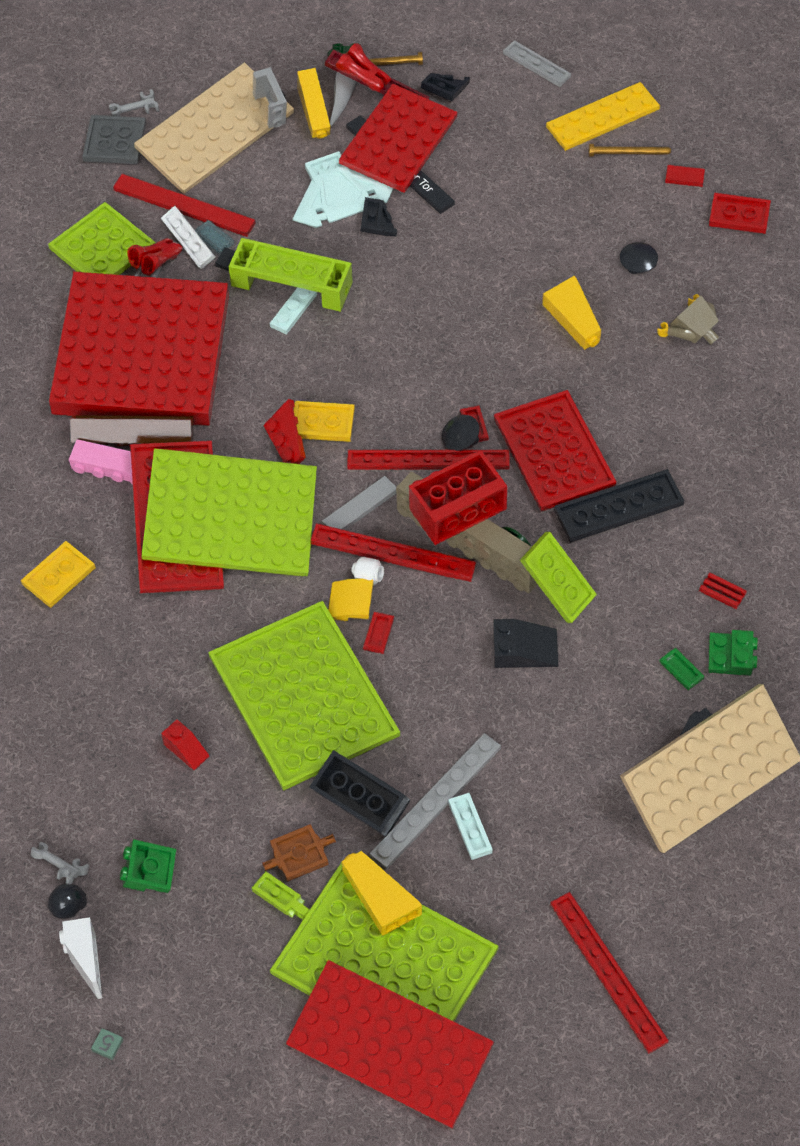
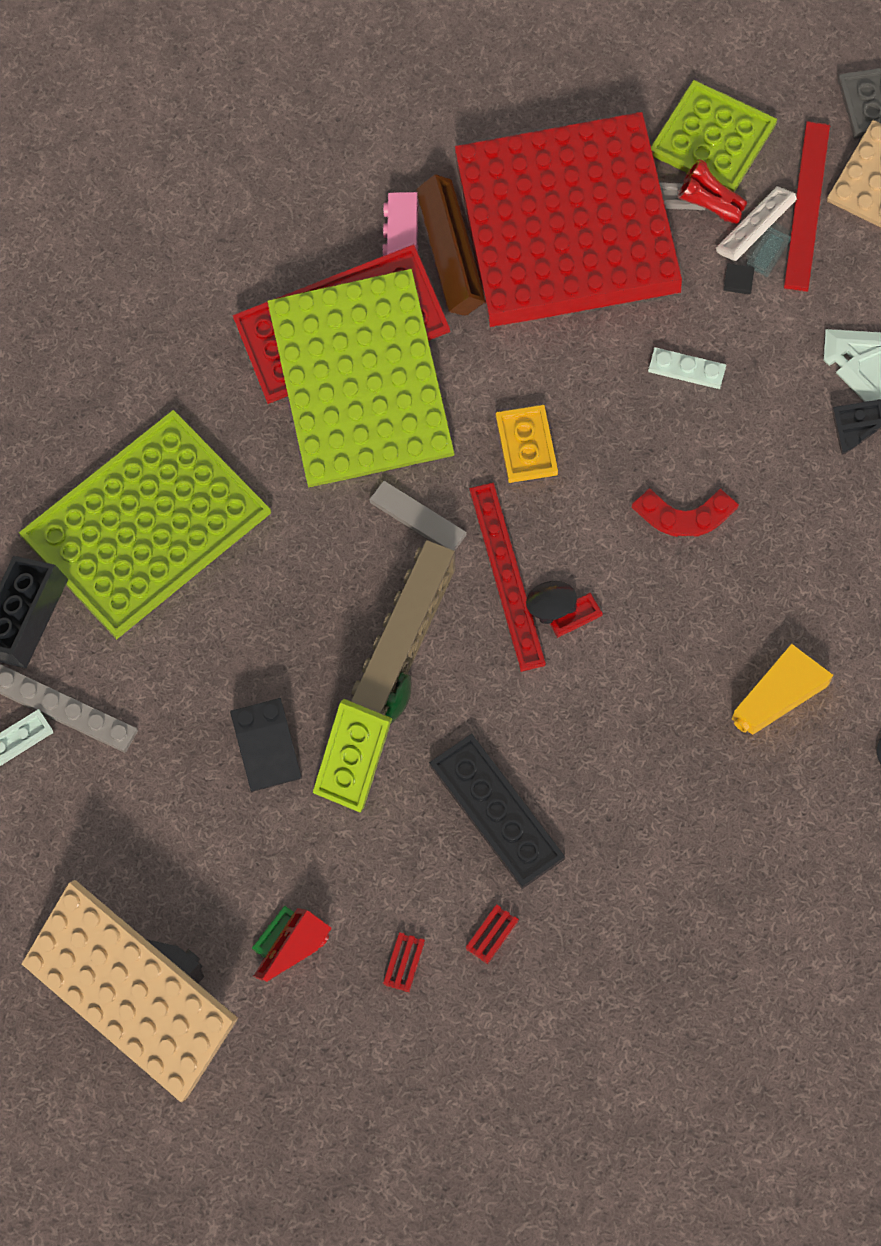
camera: 75 degrees right, 10 degrees up
(58, 574) = (241, 232): yellow plate -> none
(184, 744) = (51, 419): red slope -> none
(284, 434) = (494, 403): red wing -> none
(291, 268) = (727, 347): lime plate -> none
(350, 599) = (282, 540): yellow slope -> none
(368, 569) = (324, 547): white head -> none
(378, 632) = (247, 582): red tile -> none
(393, 552) = (359, 569): red tile -> none
(419, 343) = (685, 523): none -> red plate
(457, 497) = (413, 605): red brick -> none
(554, 450) = (559, 716): red plate -> none
(693, 322) = (810, 842): dark tan torso -> none
(697, 655) = (298, 940): none -> red slope
(703, 519) = (504, 916): none -> red tile
(732, 652) = (314, 990): green plate -> none

